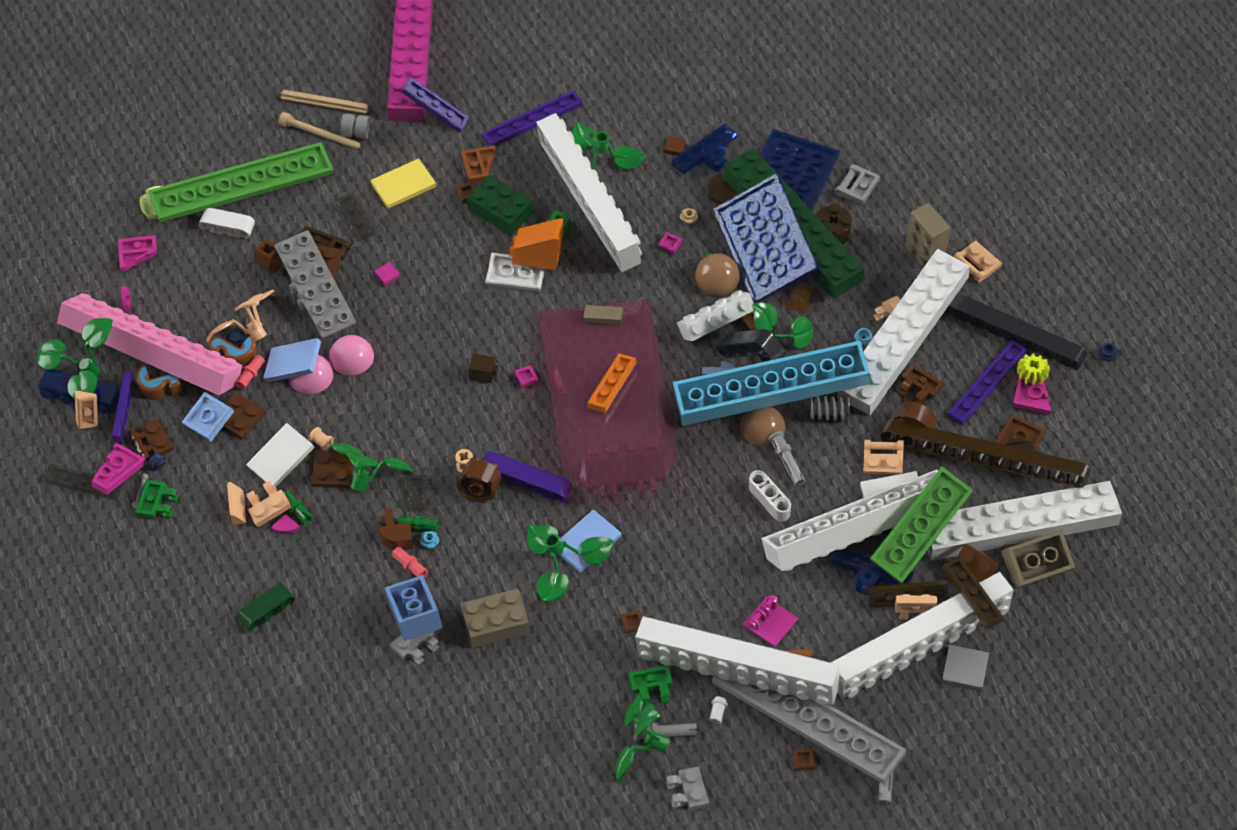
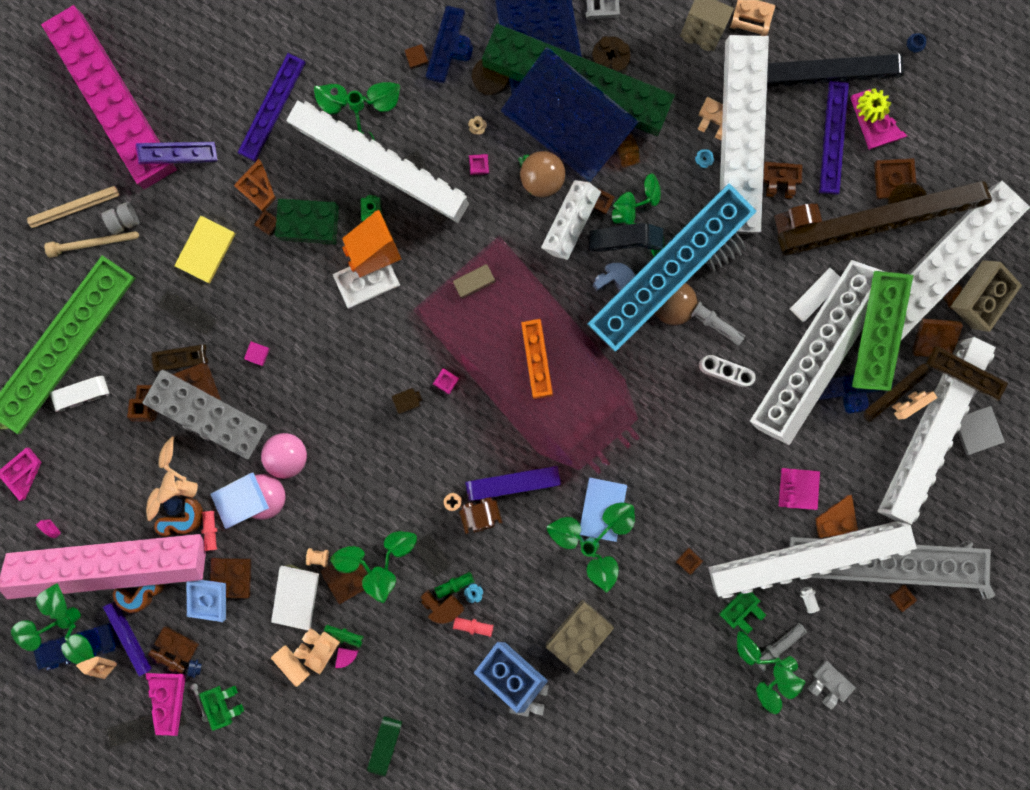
camera: 30 degrees left, 30 degrees up
(883, 463) = (798, 277): light nougat plate -> none

